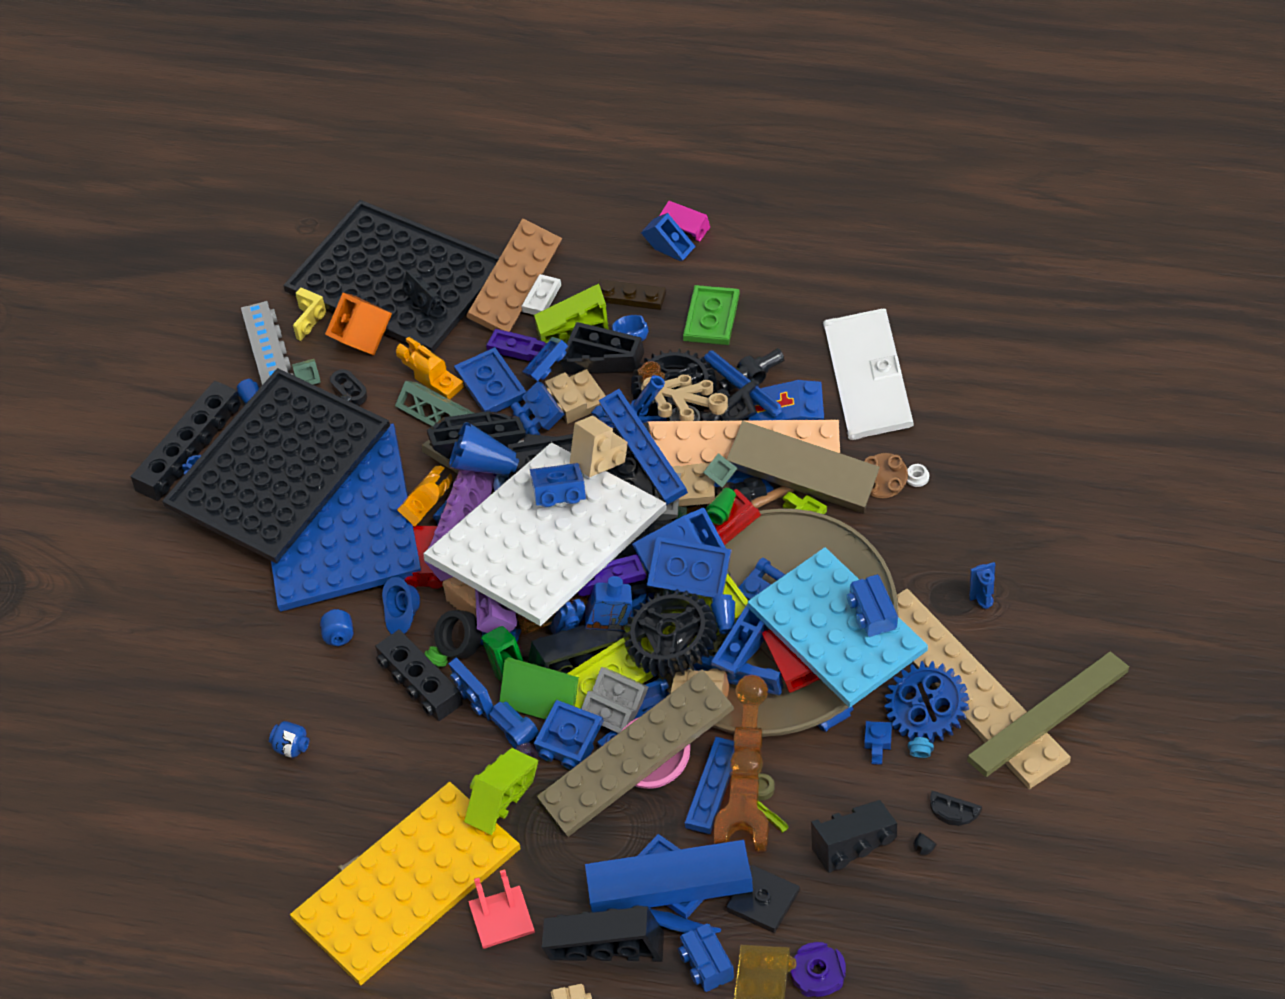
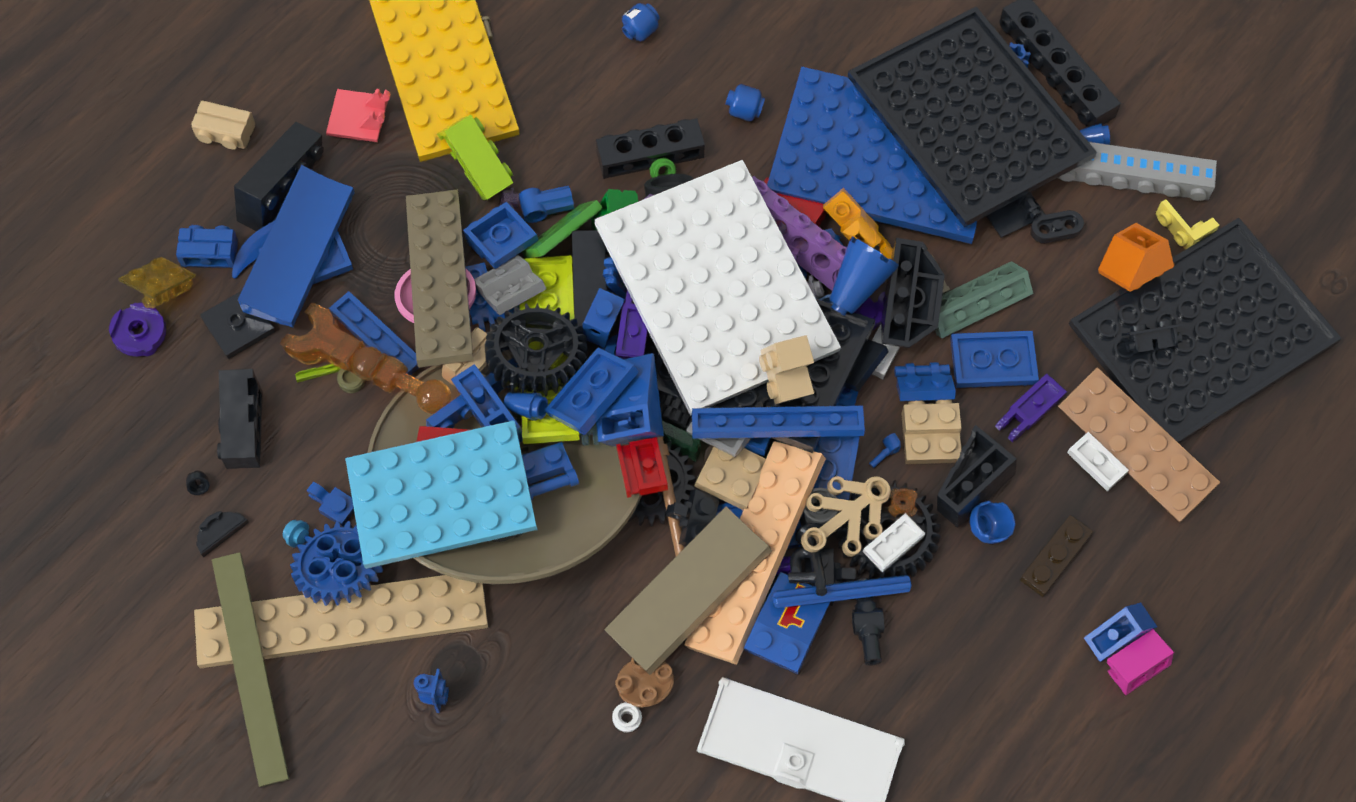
camera: 110 degrees right, 15 degrees up
(307, 371) = (1097, 194): sand green tile -> none
(400, 604) = (752, 161): blue piece -> none
(429, 369) = (1041, 306): light orange plate -> none
(471, 688) = (596, 175): blue plate -> none
(541, 363) = (981, 409): blue plate -> none
(558, 484) = (758, 307): blue plate -> none
(560, 319) = (1037, 471): lime wedge -> none
(647, 395) = (862, 472): blue pin -> none
(687, 364) = (894, 542): none -> white plate
(711, 315) = (980, 626): bright green tile -> none
(720, 470) = (718, 496): sand green tile -> none
(721, 506) = (648, 454): green cone -> none
(807, 503) = (641, 577): lime plate -> none
(873, 606) = (424, 521): blue brick -> none

